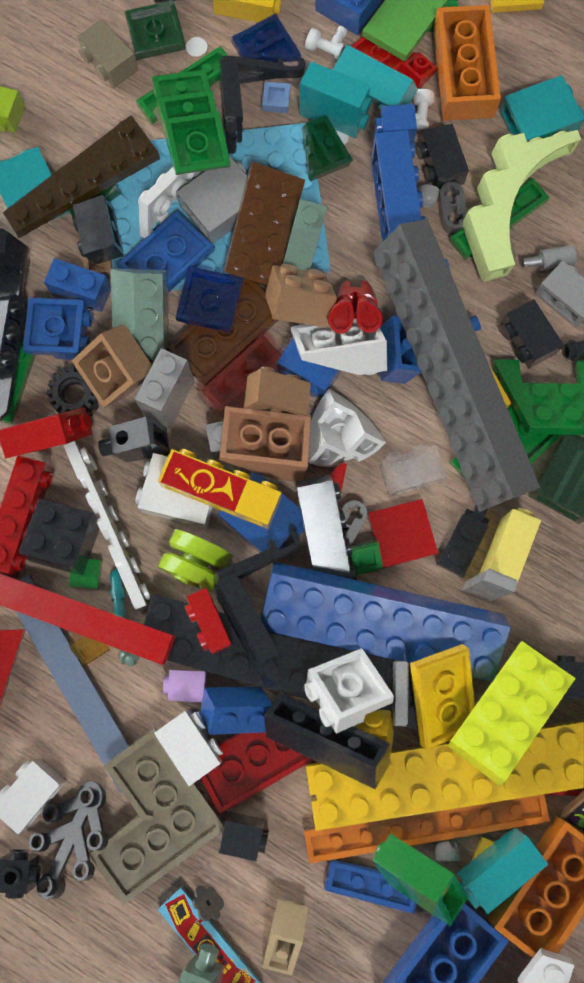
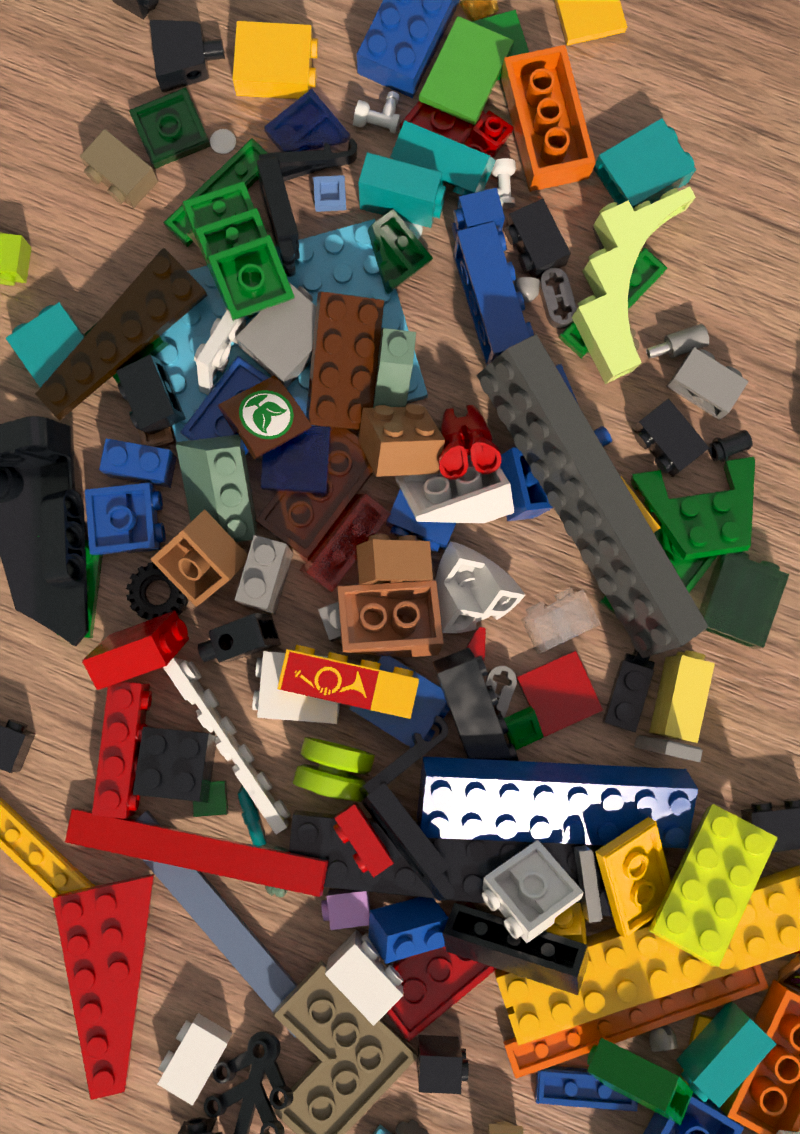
camera: 15 degrees left, 5 degrees up
(88, 650) = (226, 887): clear yellow slope -> none
(189, 259) = (265, 416): none -> slope

